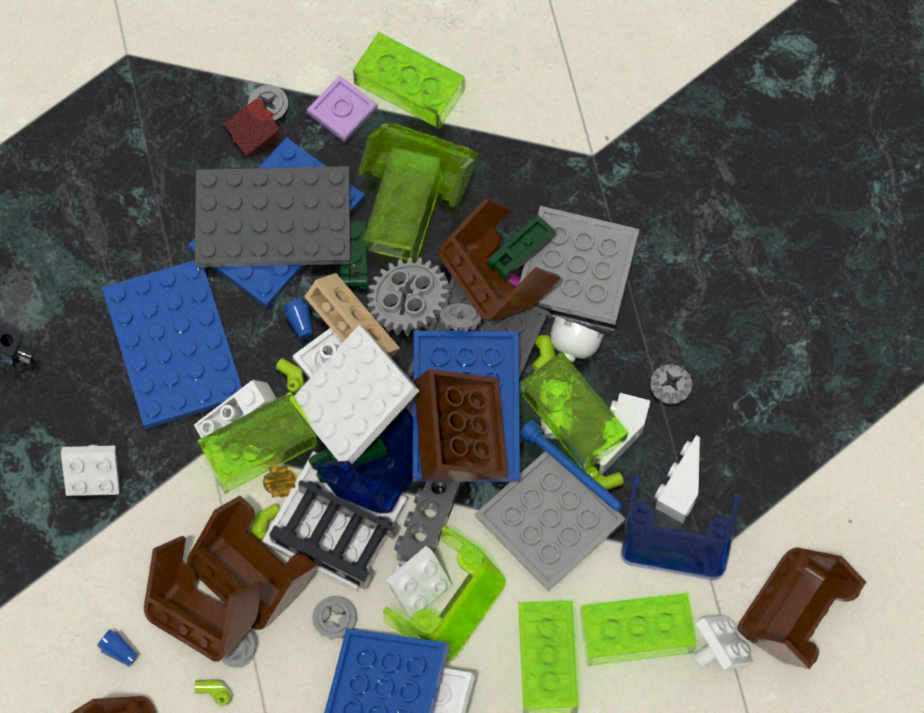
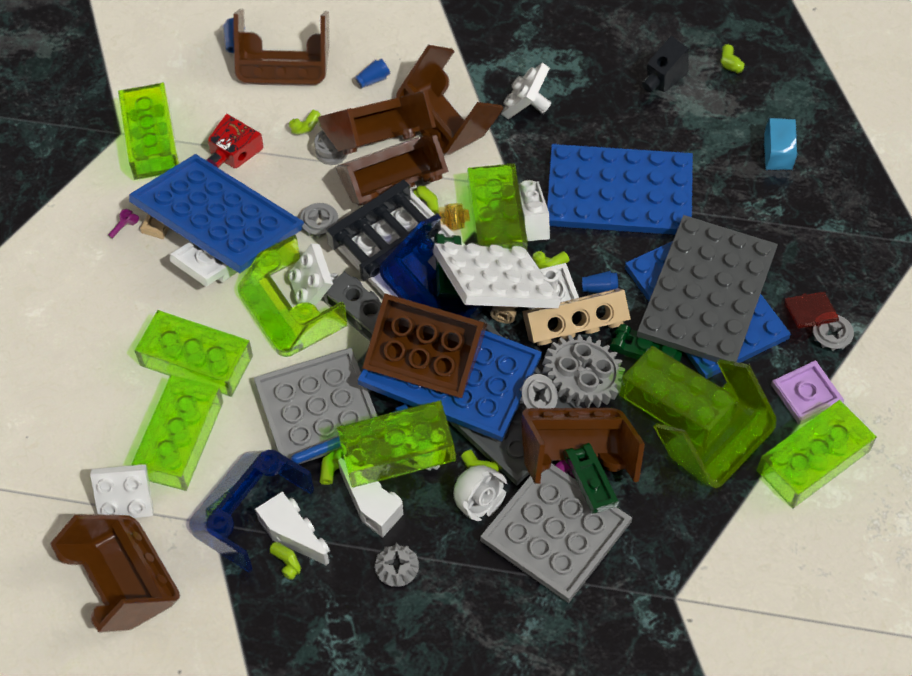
camera: 115 degrees right, 10 degrees down
(59, 208) = (780, 144): none -> dark azure piece
(164, 522) = (450, 127): none -> reddish brown windscreen
(709, 474) = (288, 556): none -> lime arm

